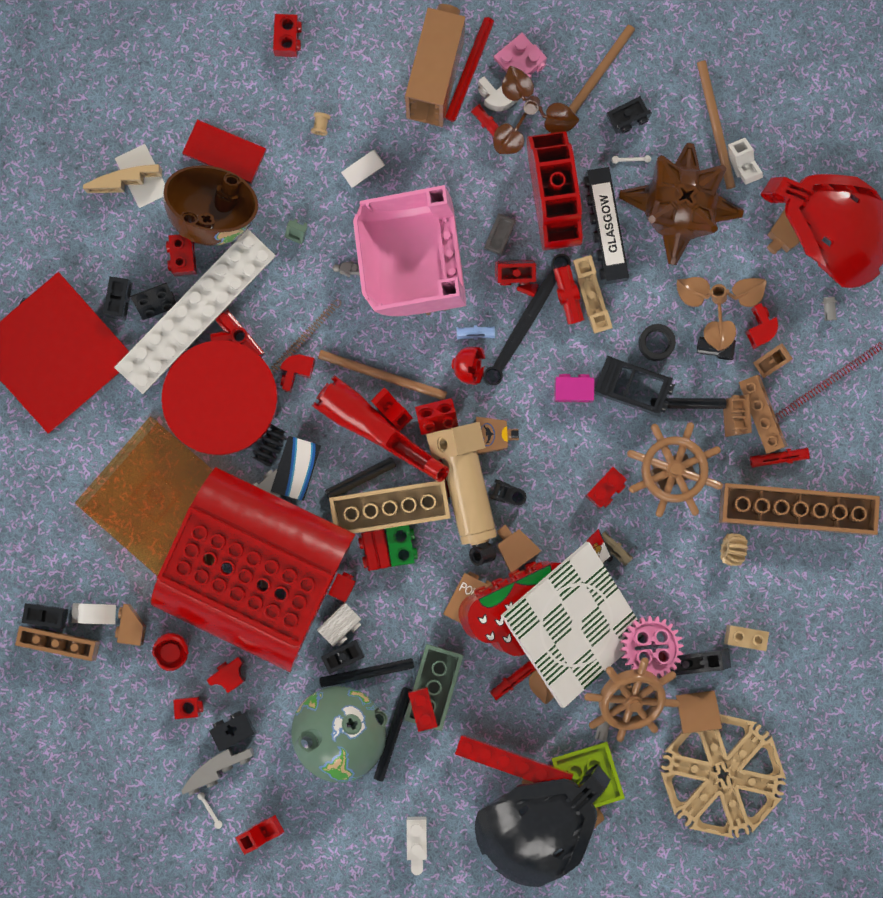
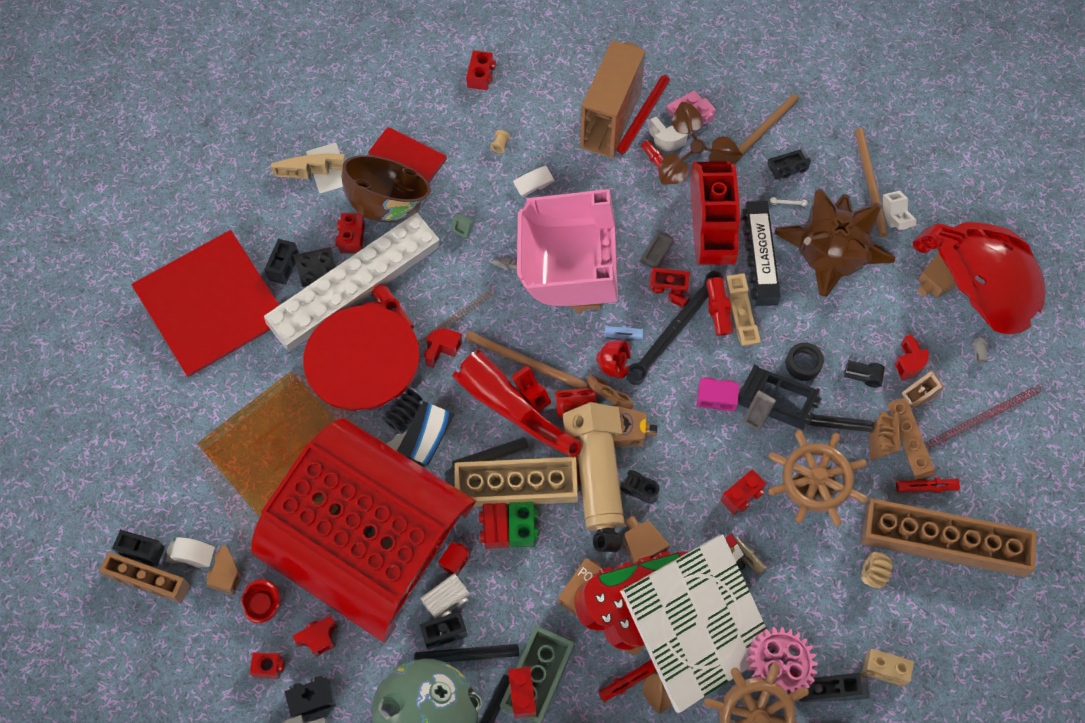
camera: 10 degrees right, 20 degrees down
(460, 398) = (602, 387): none -> medium nougat tile
(615, 404) = (759, 410): none -> flat silver tile
(695, 289) = (870, 358): medium nougat plant -> none

